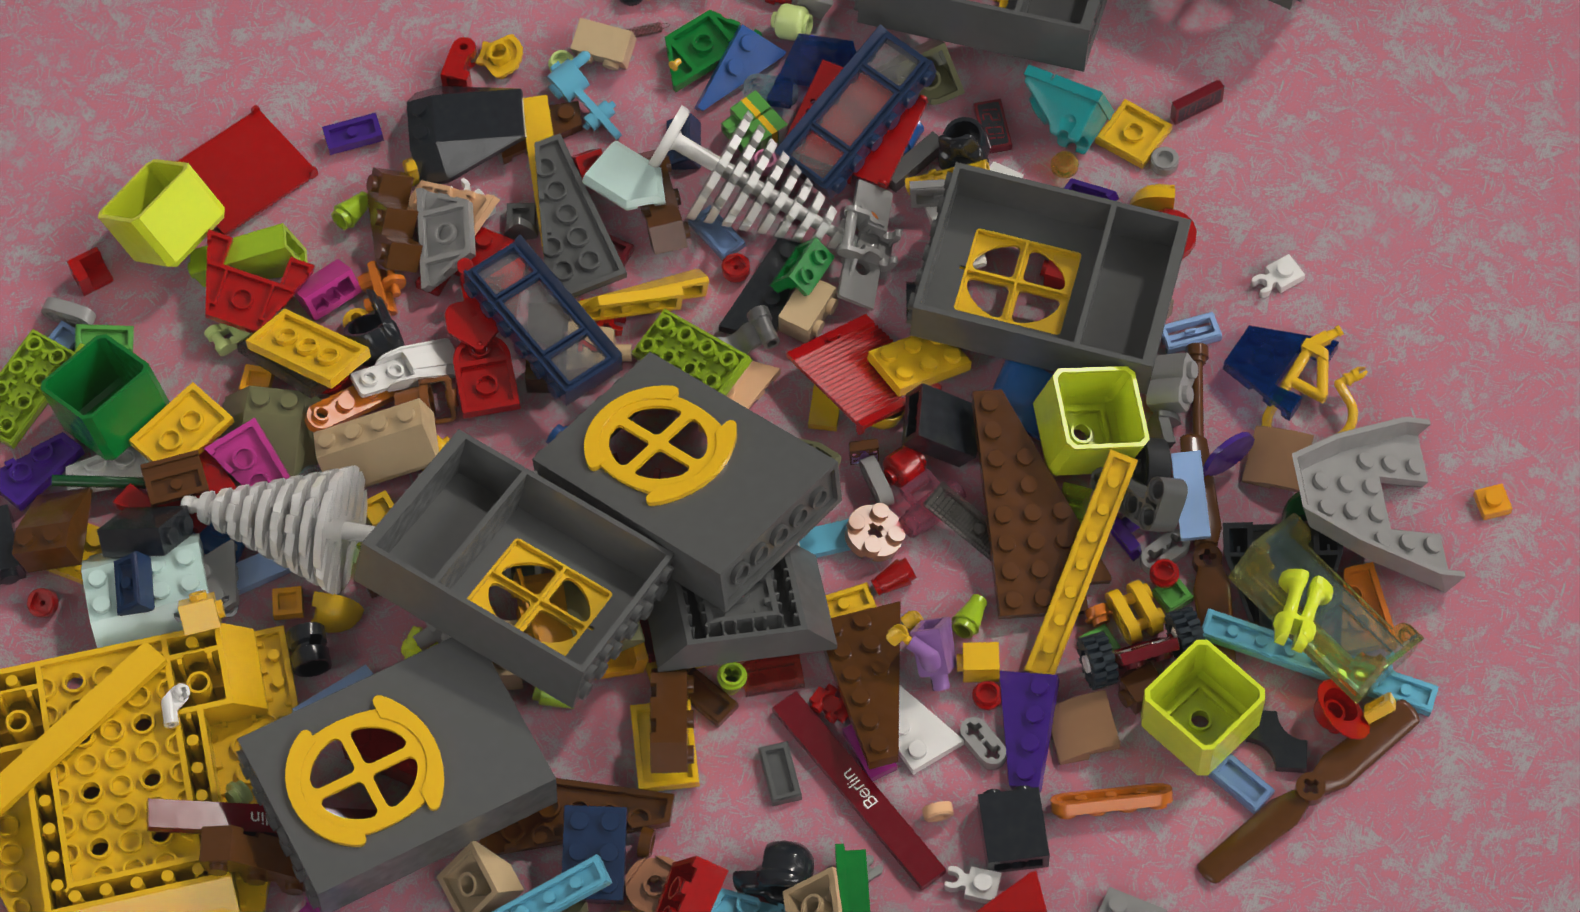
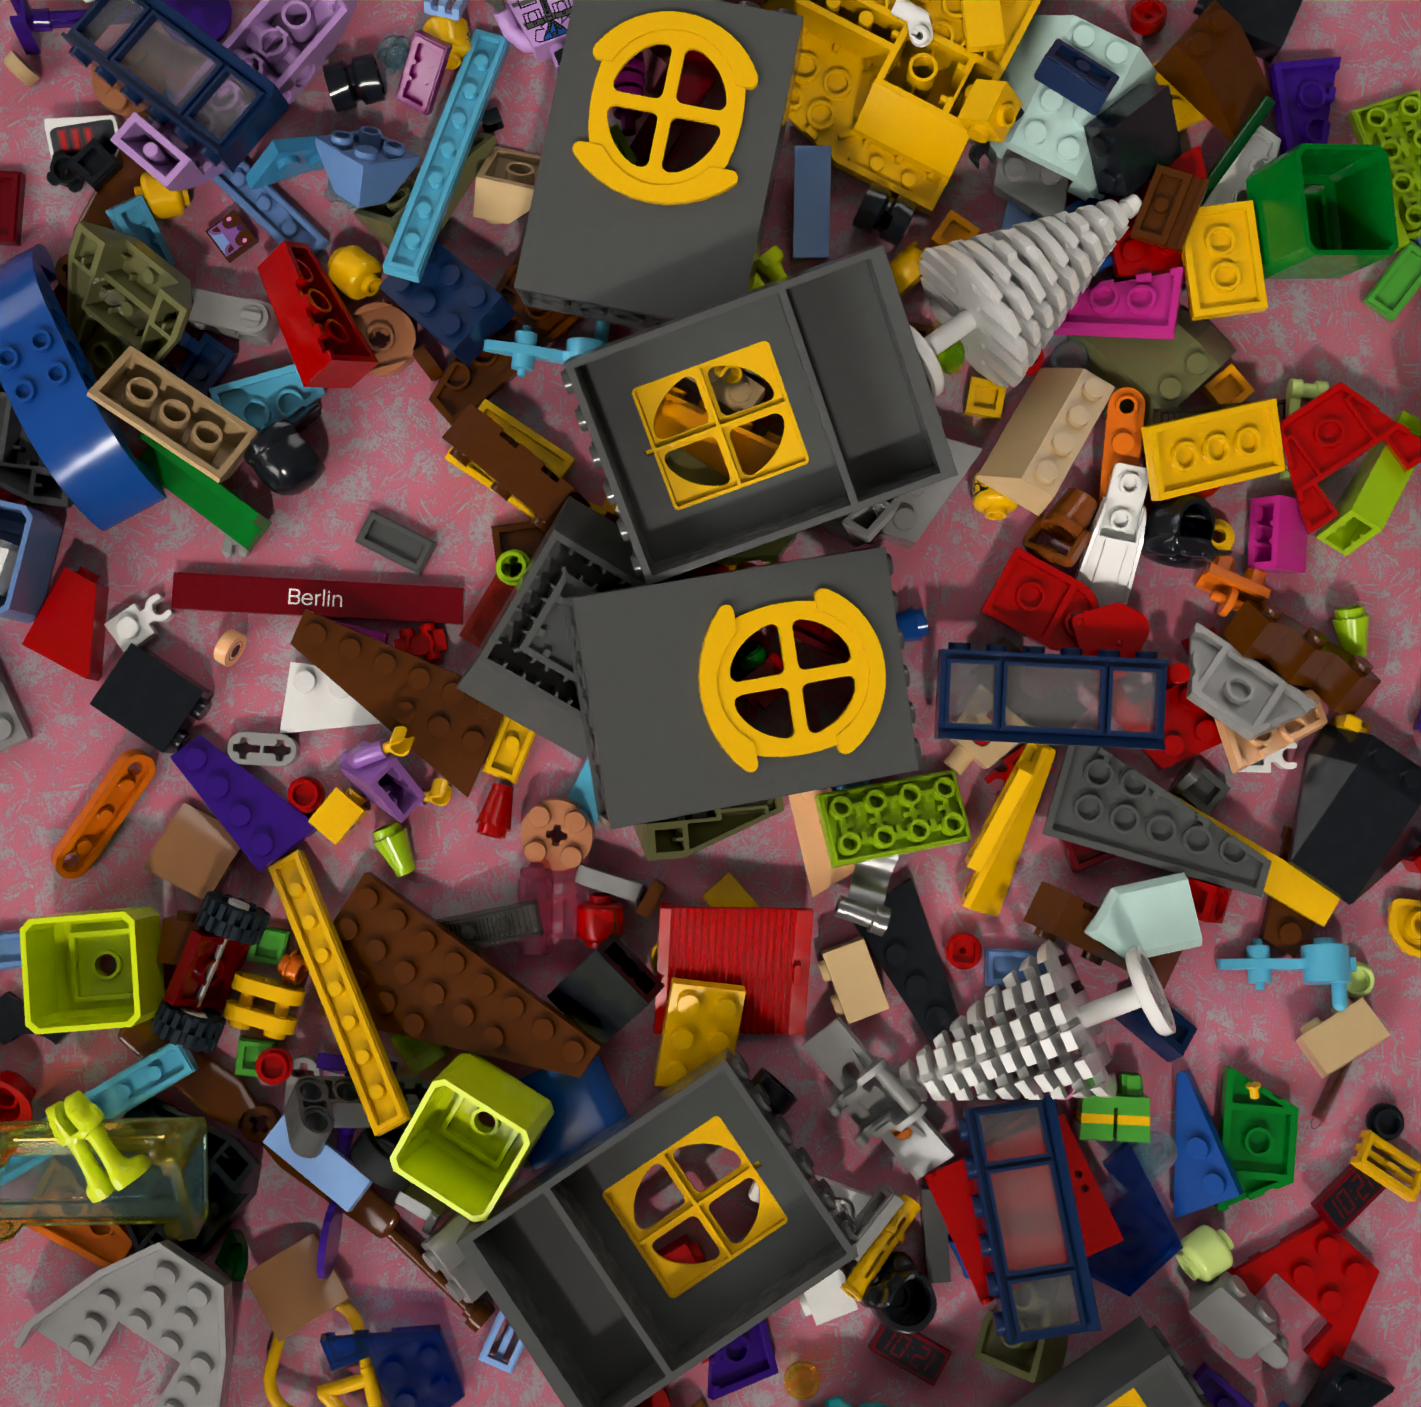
camera: 125 degrees right, 25 degrees up
(563, 749) = (525, 349): none -> medium azure piece
(803, 267) = (896, 1009): green bracket -> none

